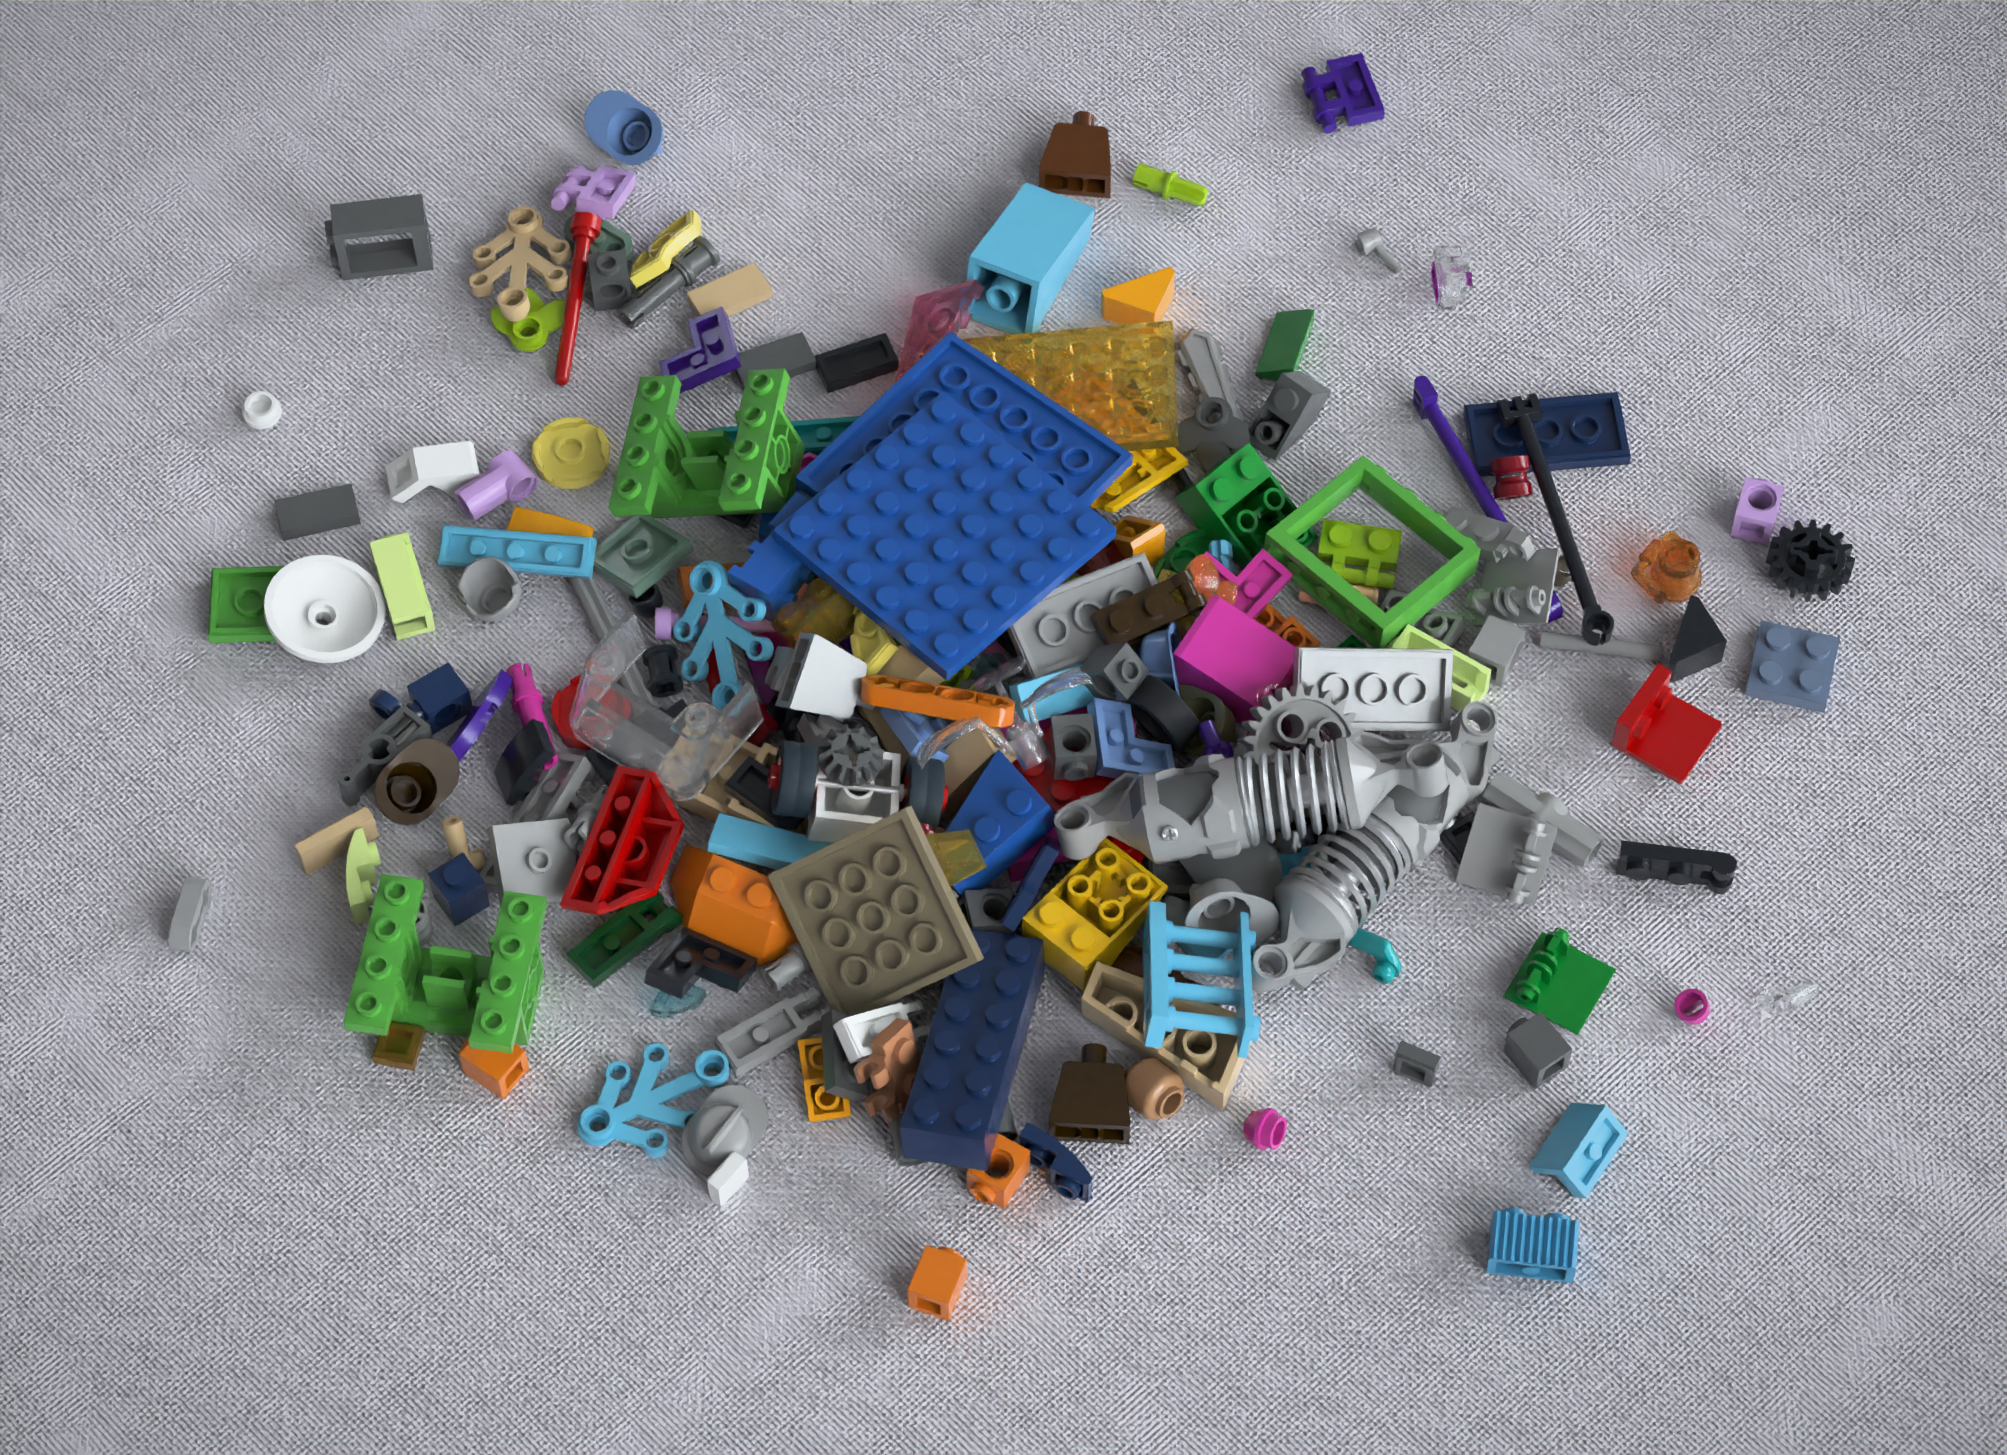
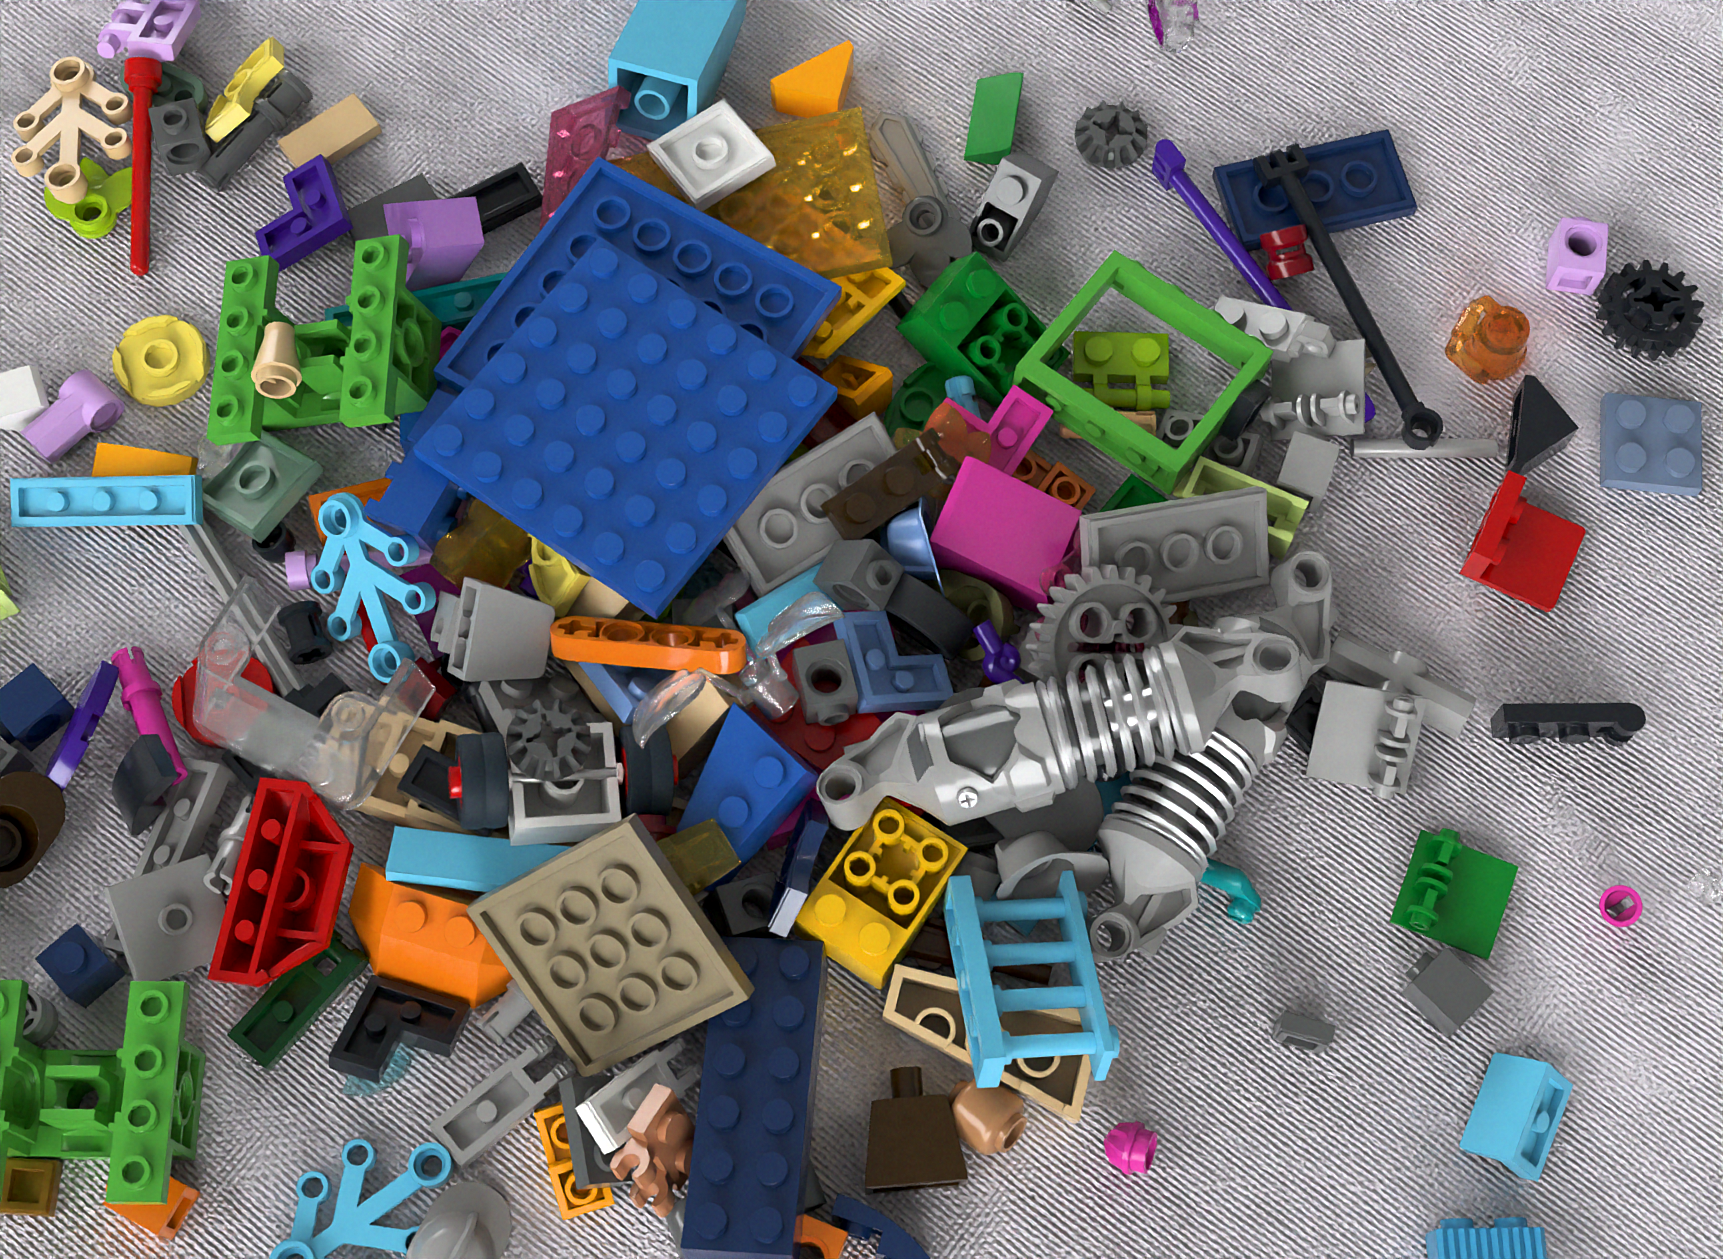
camera: 10 degrees left, 10 degrees up
(458, 843) = (78, 904): tan arm -> none
(490, 589) = (78, 555): light grey hair -> none
(609, 527) = (215, 458): none -> clear tile
(672, 458) = (277, 362): none -> tan cone
(816, 378) = (441, 238): none -> medium lavender wedge
(1043, 344) = (711, 155): none -> white tile
(1391, 380) = (1125, 147): none -> dark grey gear
(1451, 593) = (1245, 410): none -> black tile

